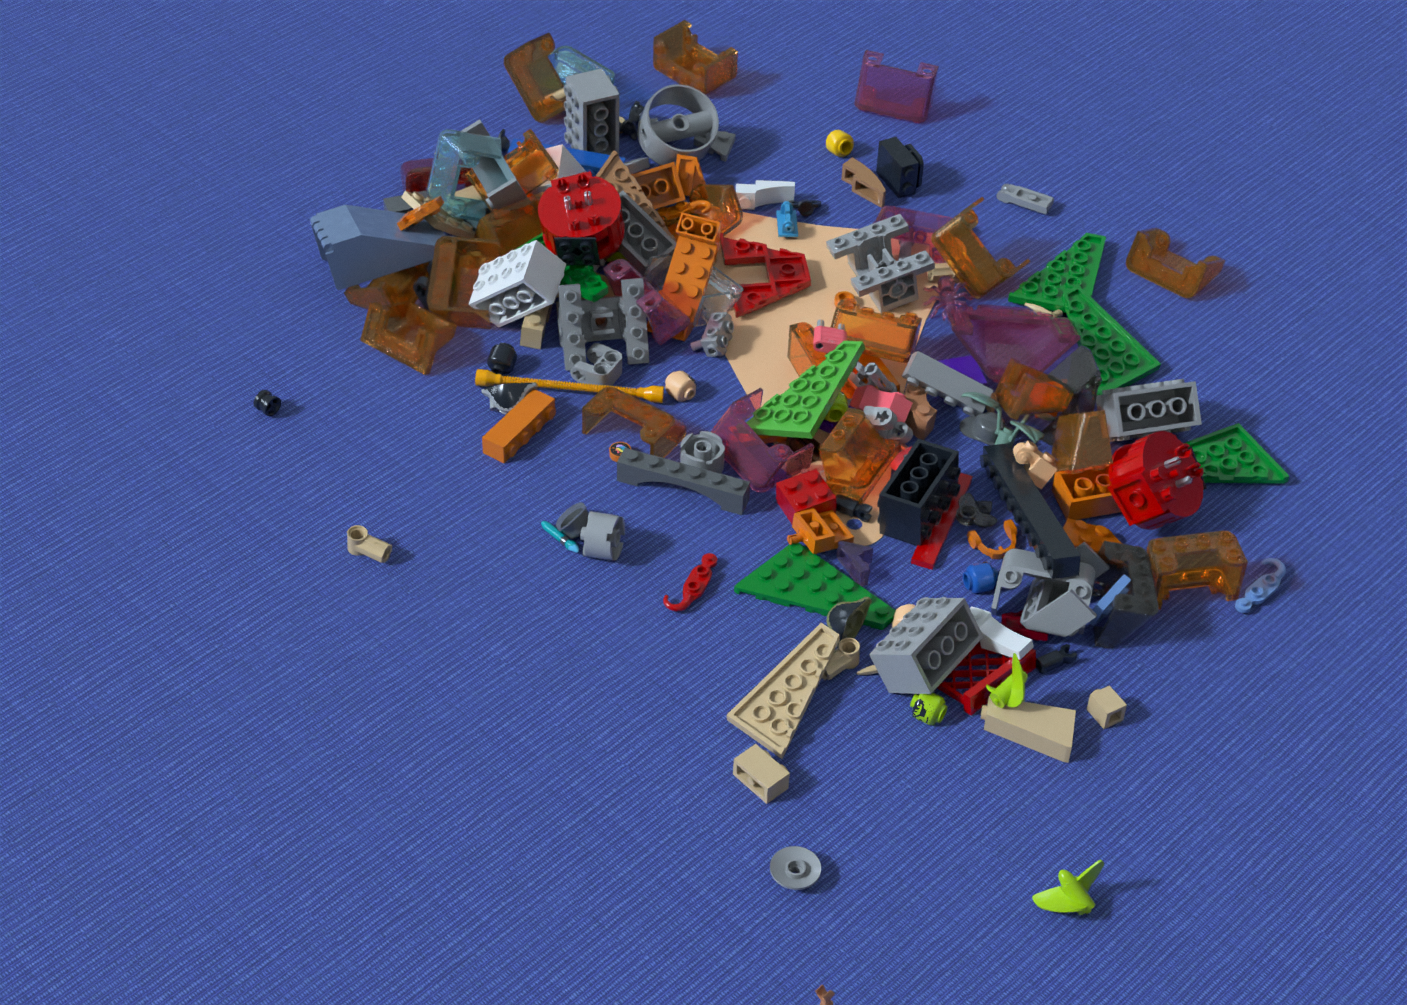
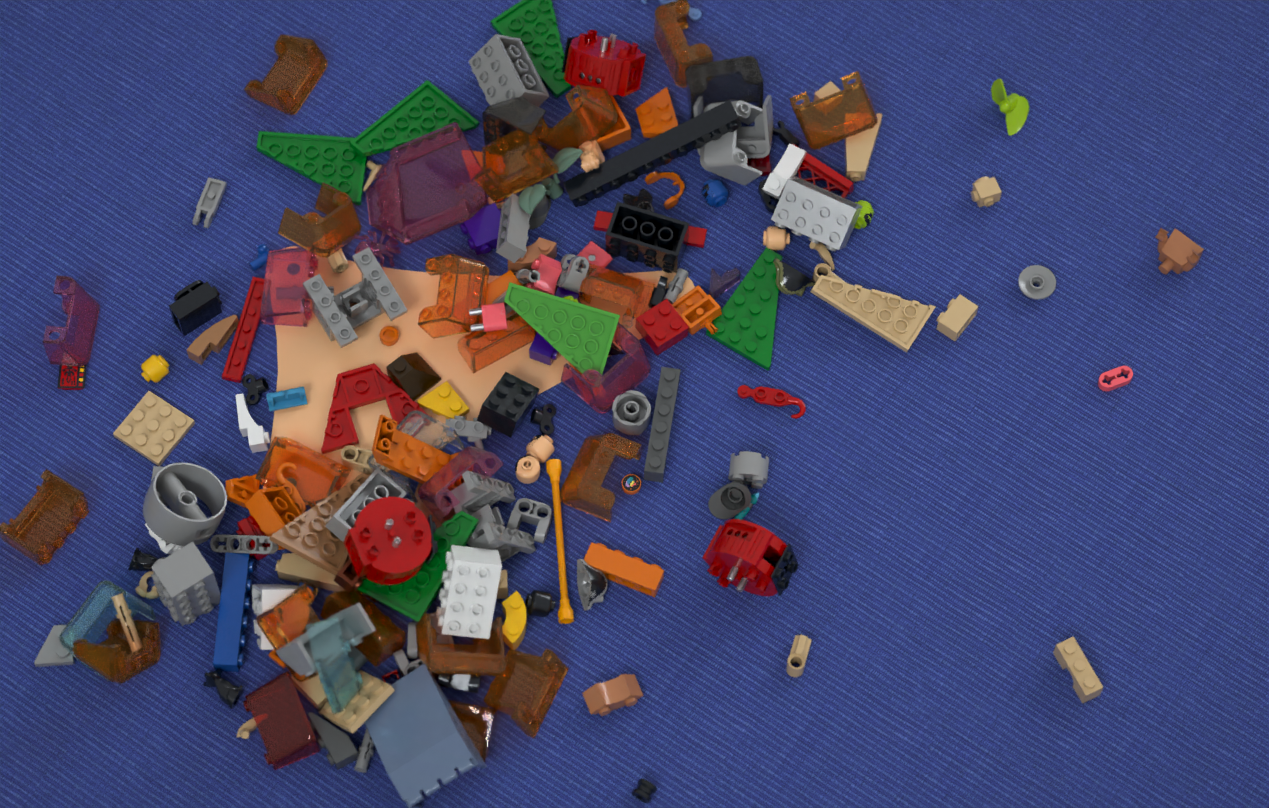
camera: 100 degrees left, 20 degrees up
(231, 788) = (1085, 680): none -> tan arch
(380, 395) = (613, 694): none -> nougat brick
(418, 214) = (390, 700): orange wing -> none
(482, 336) = (516, 620): none -> yellow brick
(484, 500) = (750, 558): none -> red piece
(631, 928) = (1113, 376): none -> coral beam
(656, 369) = (527, 469): none -> light nougat head
(717, 396) = (543, 418): none -> black piece
(732, 356) = (508, 404): none -> black brick
(755, 329) = (444, 402): none -> yellow wing
(777, 141) = (154, 428): none -> tan plate
(792, 305) = (412, 375): none -> dark brown slope
(844, 99) = (71, 377): none -> piece
(850, 201) = (245, 333): none -> red tile
(858, 523) = (676, 285): none -> light grey pin
(943, 843) = (986, 191): none -> tan brick
(1011, 690) = (845, 153): lime piece -> none
(1067, 689) = (837, 114): none -> clear orange windscreen
(1105, 605) = (736, 90): medium blue plate -> none

